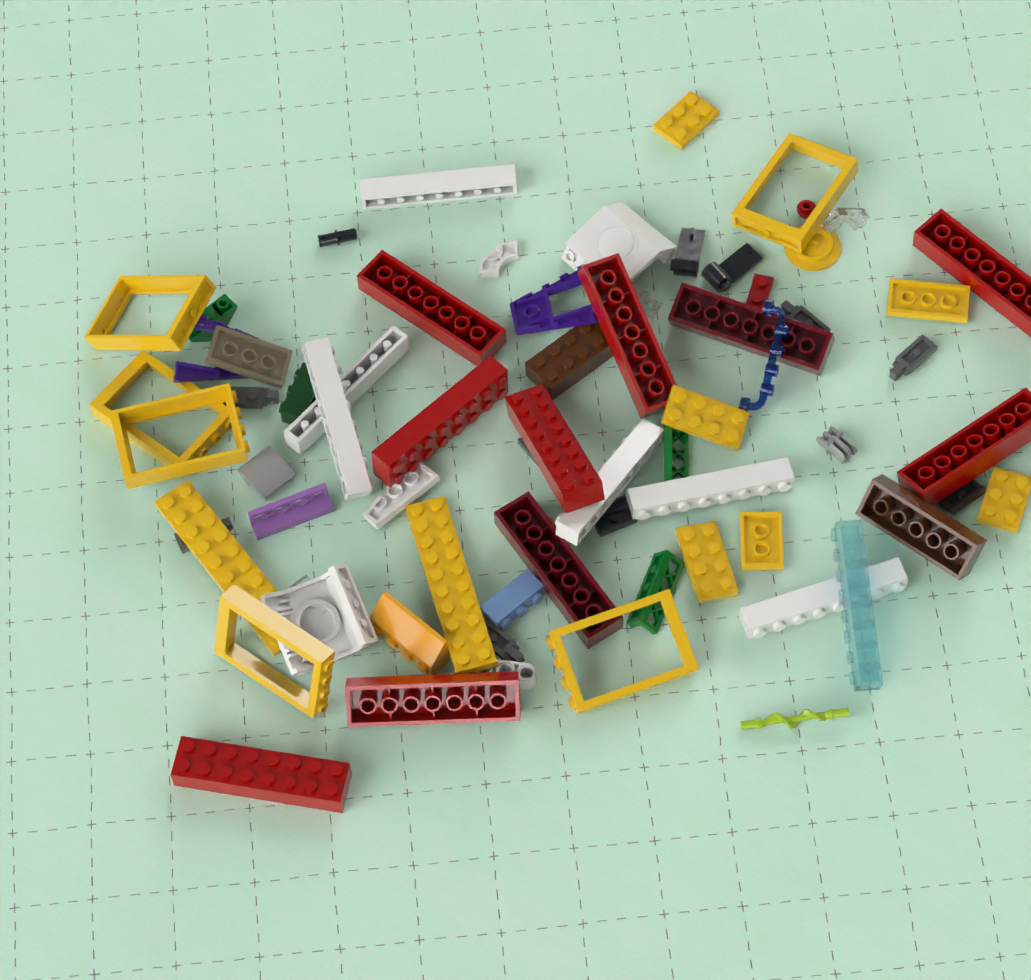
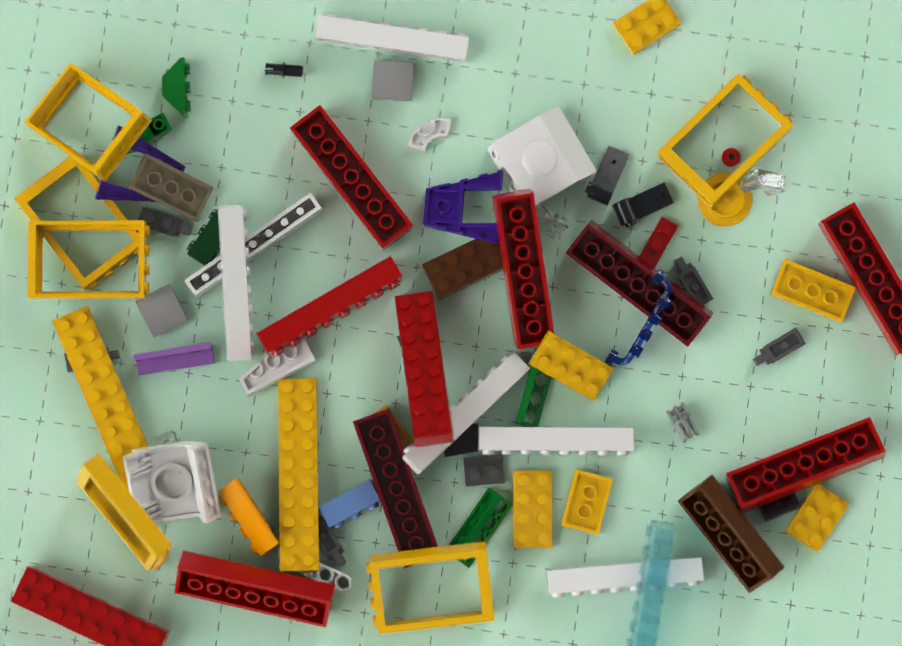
camera: 10 degrees right, 25 degrees up
(232, 275) = (176, 87): none -> green slope
(449, 221) = (393, 80): none -> light grey slope
(644, 540) = (483, 470): none -> dark grey plate

